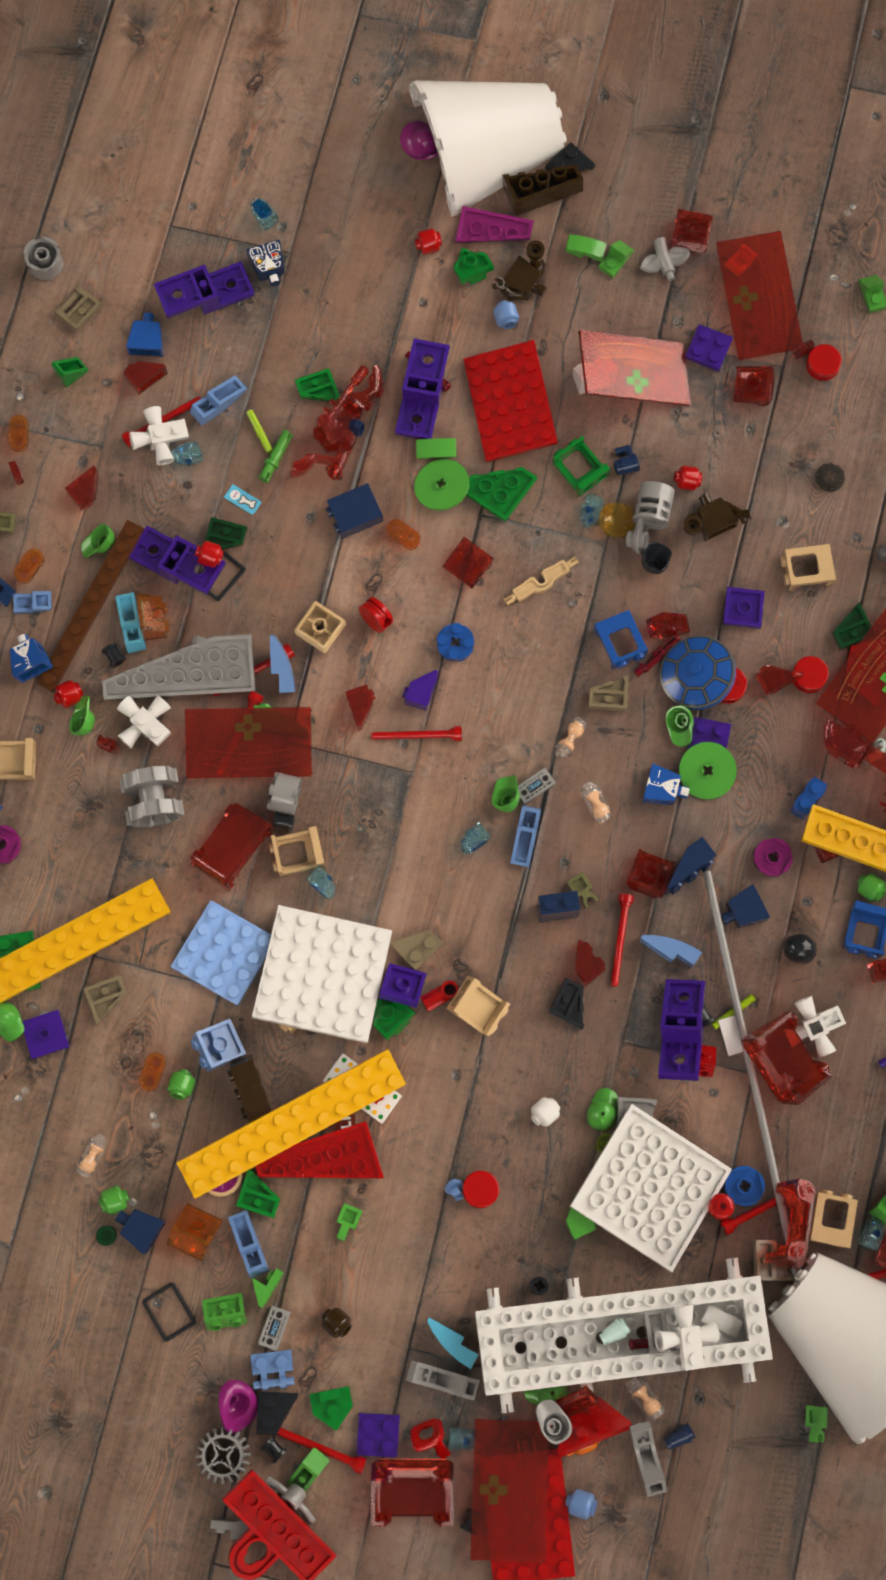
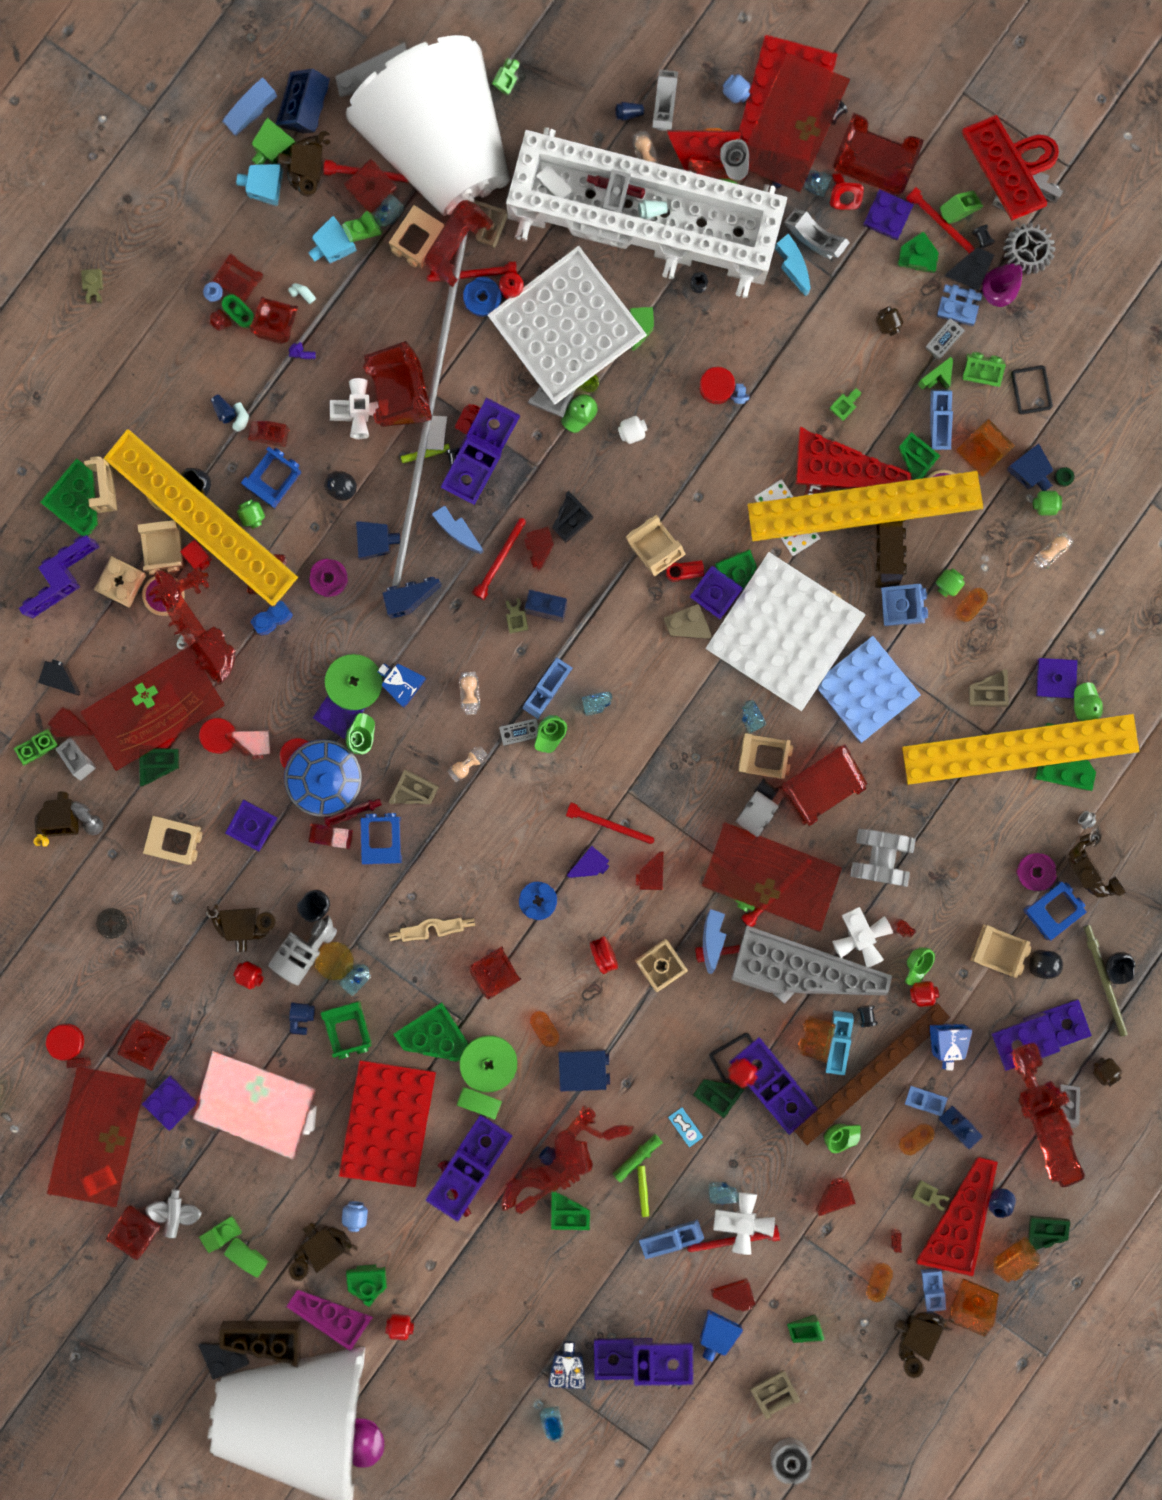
camera: 160 degrees left, 10 degrees up
(293, 1497) = (983, 190): light grey piece -> none
(650, 874) = (448, 605): clear red slope -> none
(687, 1337) = (593, 174): white brick -> none

